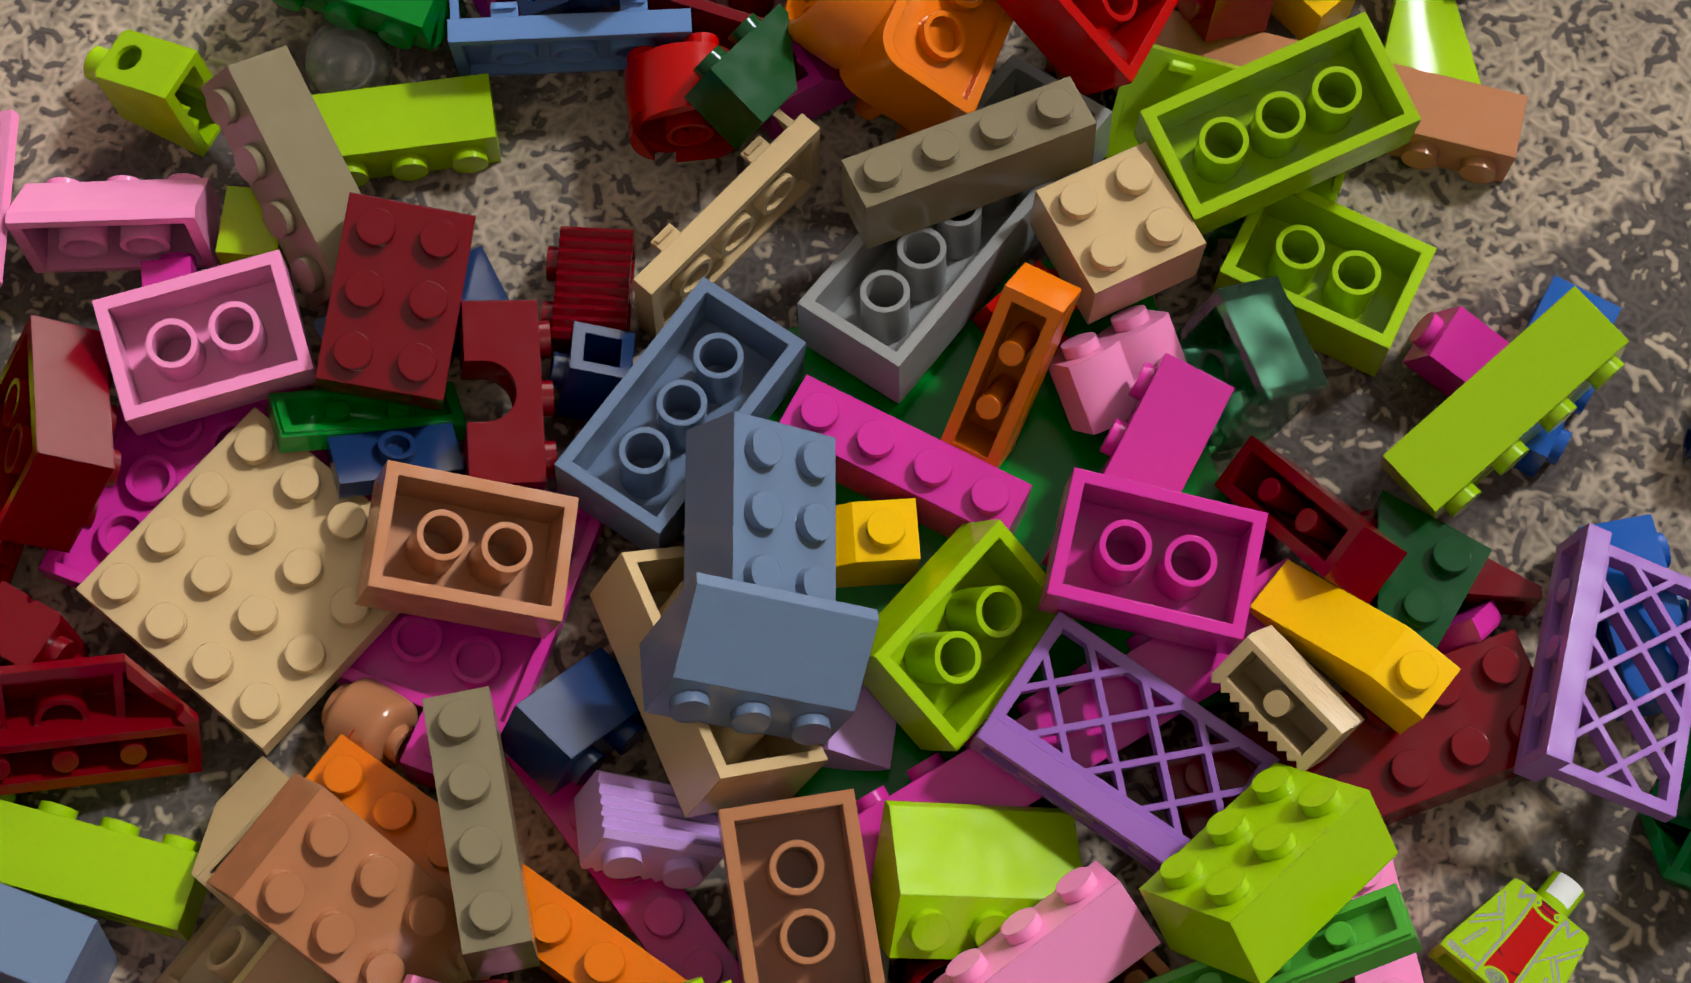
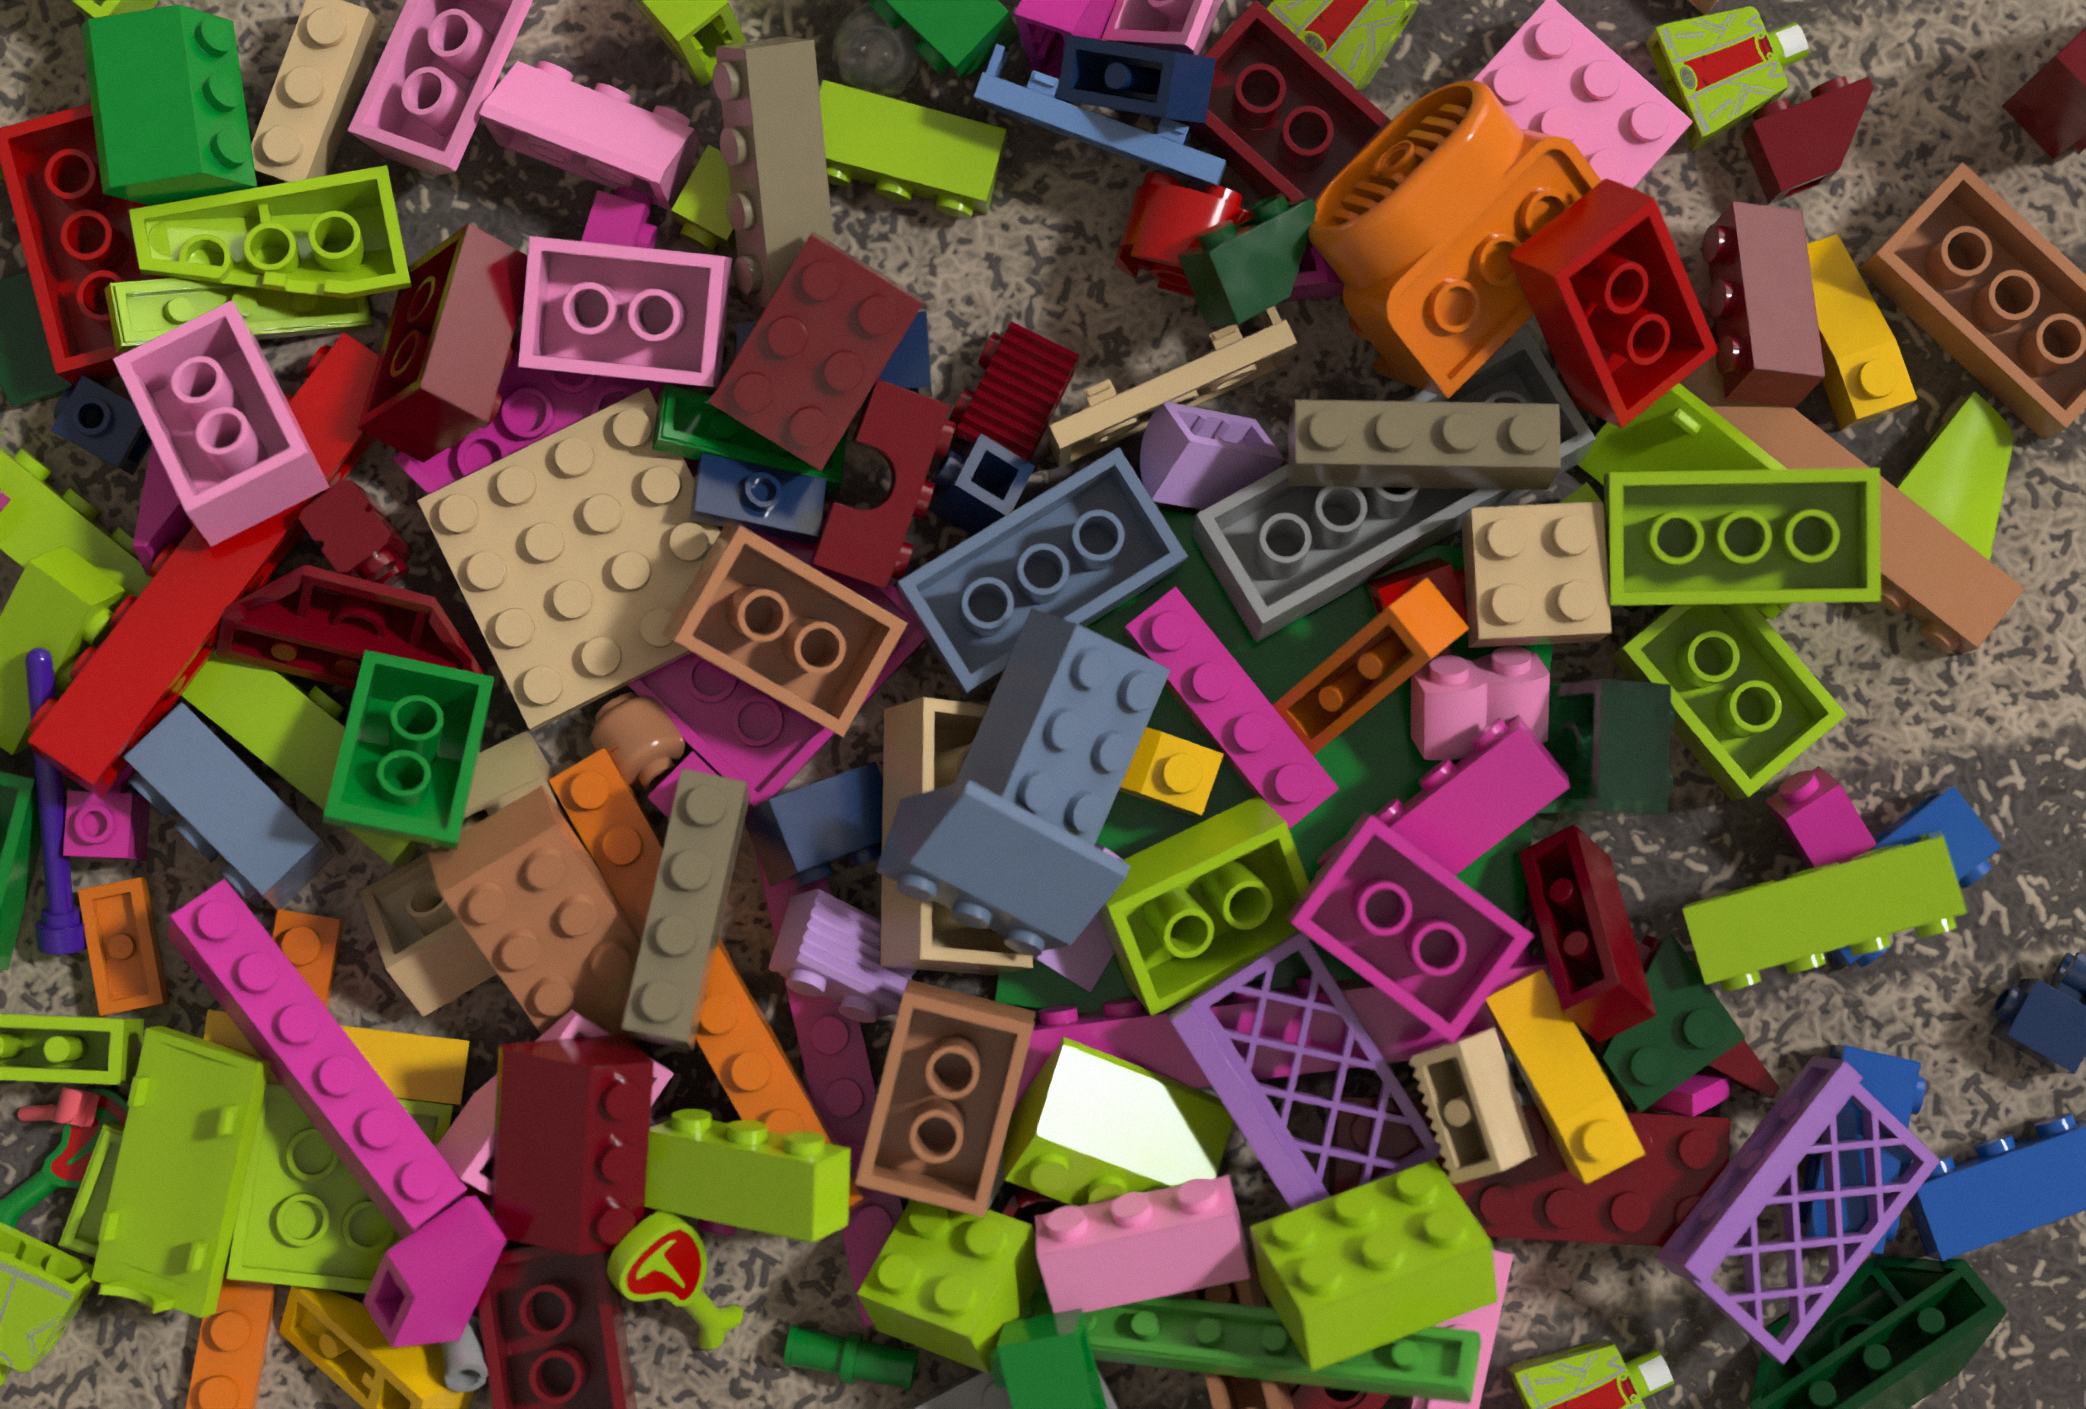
camera: 25 degrees right, 15 degrees up
(152, 796) = (409, 750): none -> green slope
(774, 265) = (1202, 455): none -> lavender brick

